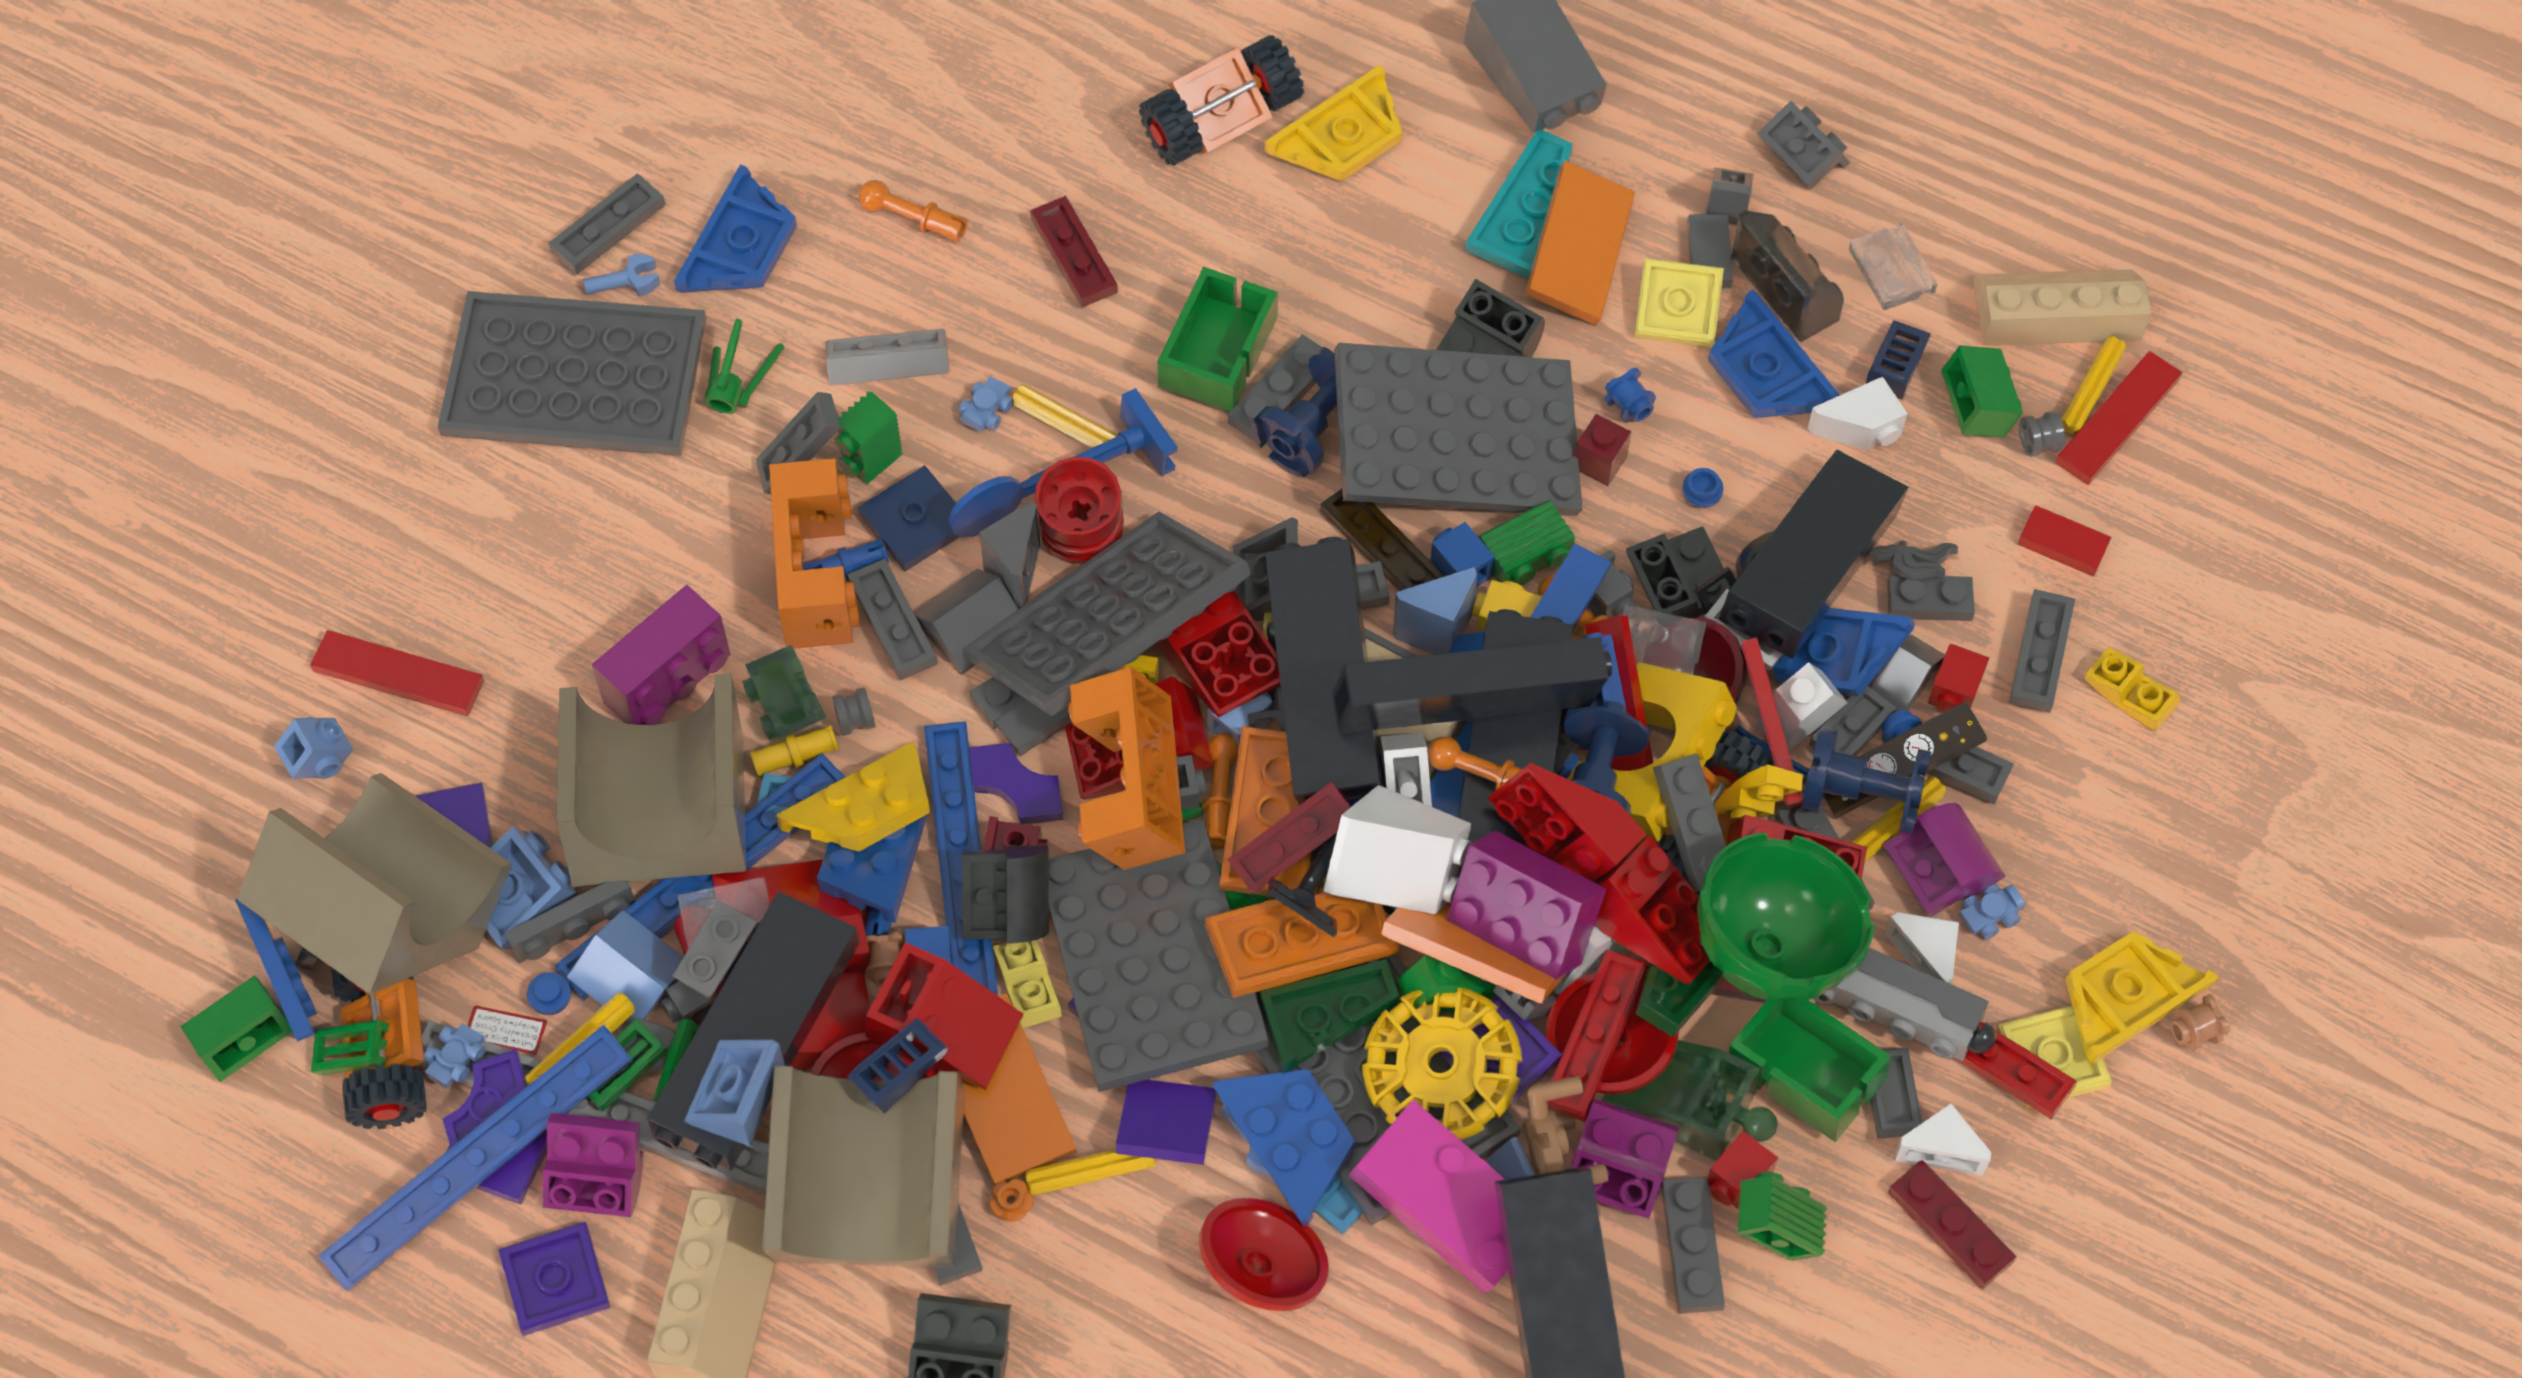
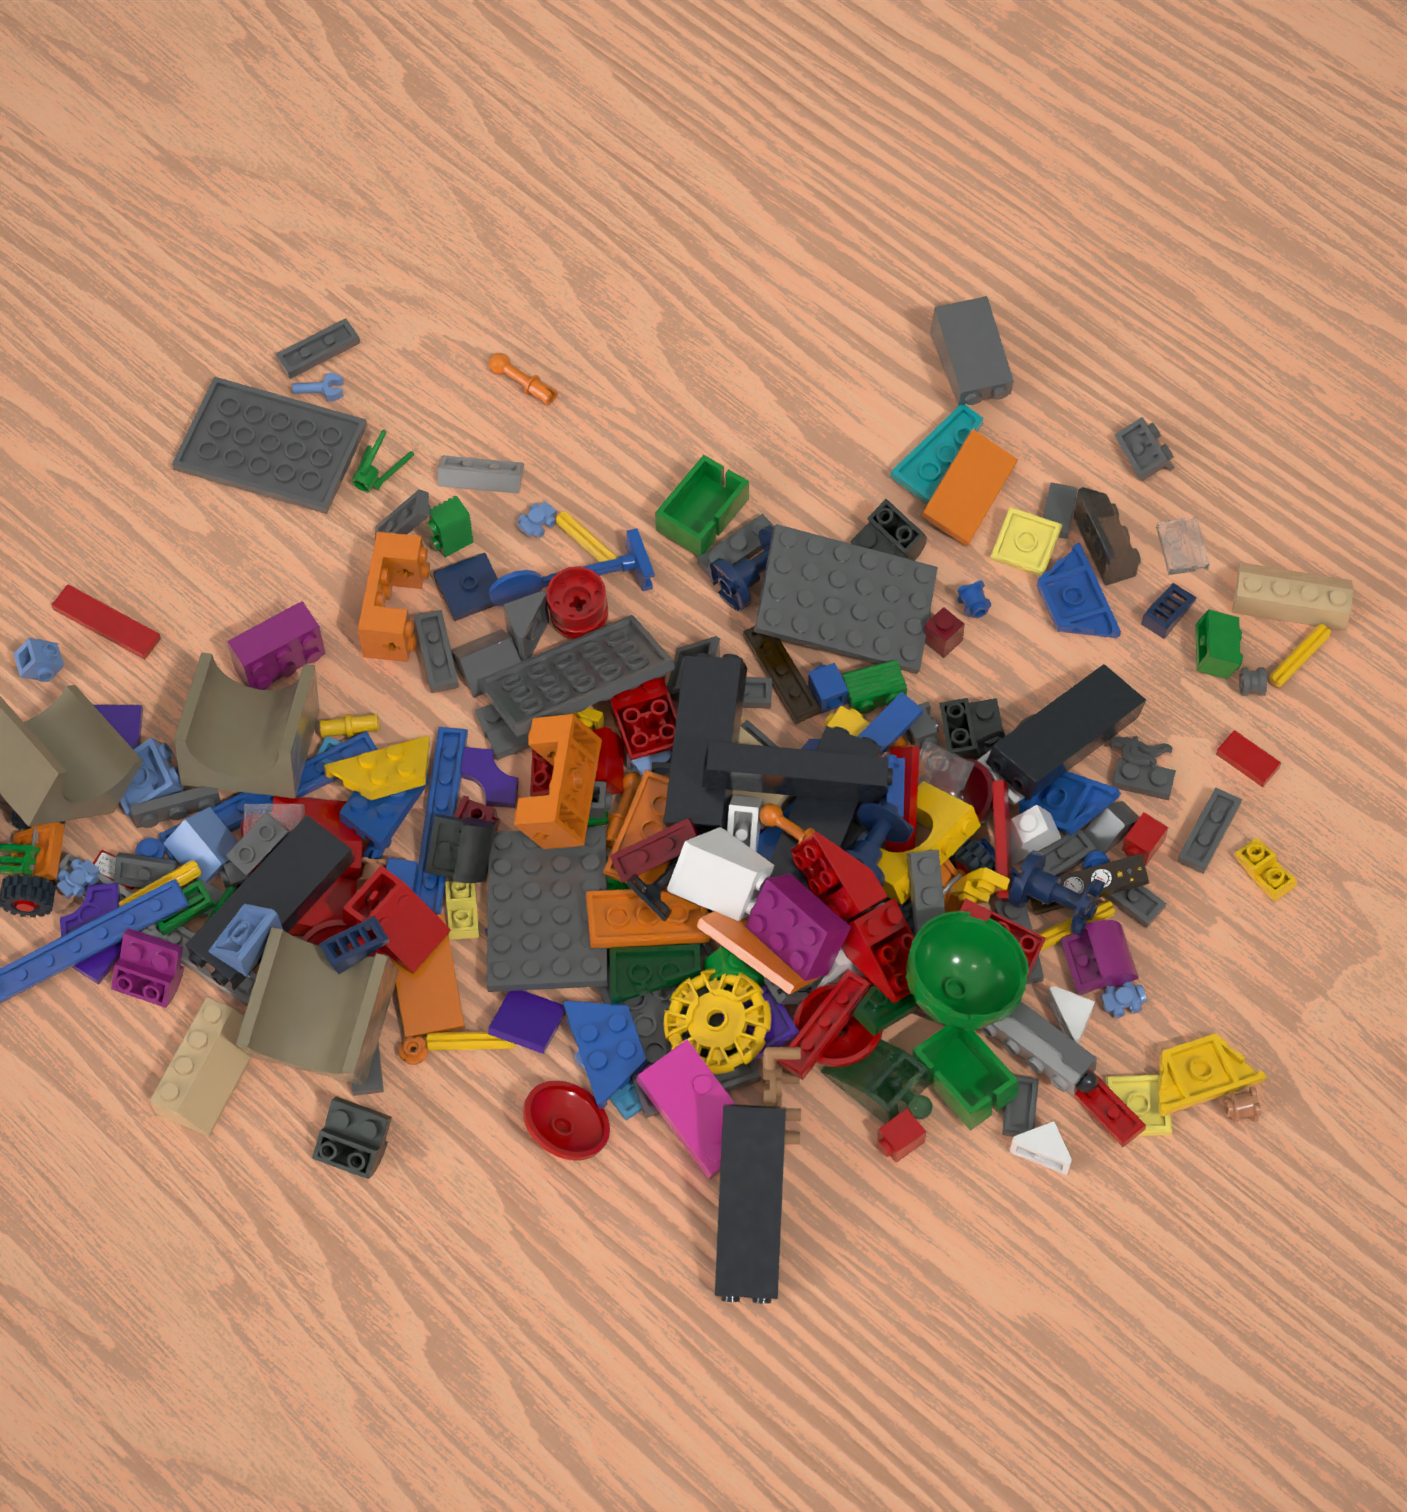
camera: 15 degrees right, 0 degrees up
(544, 1023) = (140, 870): none -> dark grey plate
(554, 1278) = (107, 1036): dark purple tile -> none
(739, 239) = (402, 376): blue wing -> none
(783, 694) = (351, 686): clear green cylinder -> none
(853, 558) = (419, 606): blue pin -> none
(853, 711) = (394, 707): dark grey wheel -> none
(1074, 251) = (623, 427): dark red plate -> none
(1221, 100) = (749, 342): plate -> none
(1342, 130) = (829, 378): yellow wing -> none
(1435, 612) = (798, 719): medium blue slope -> none
(1511, 1160) = (747, 1094): medium blue slope -> none
(1633, 1152) = (825, 1109): magenta brick -> none
(1692, 1245) = (856, 1178): dark grey plate -> none
(1702, 488) = (1007, 672): blue plate -> none
(1730, 193) = (1083, 471): dark grey slope -> none
(1781, 1217) = (917, 1171): green brick -> none
(1860, 417) = (1129, 645): white slope -> none
(1952, 1224) = (1035, 1202): dark red plate -> none
(2118, 417) = (1311, 681): red tile -> none

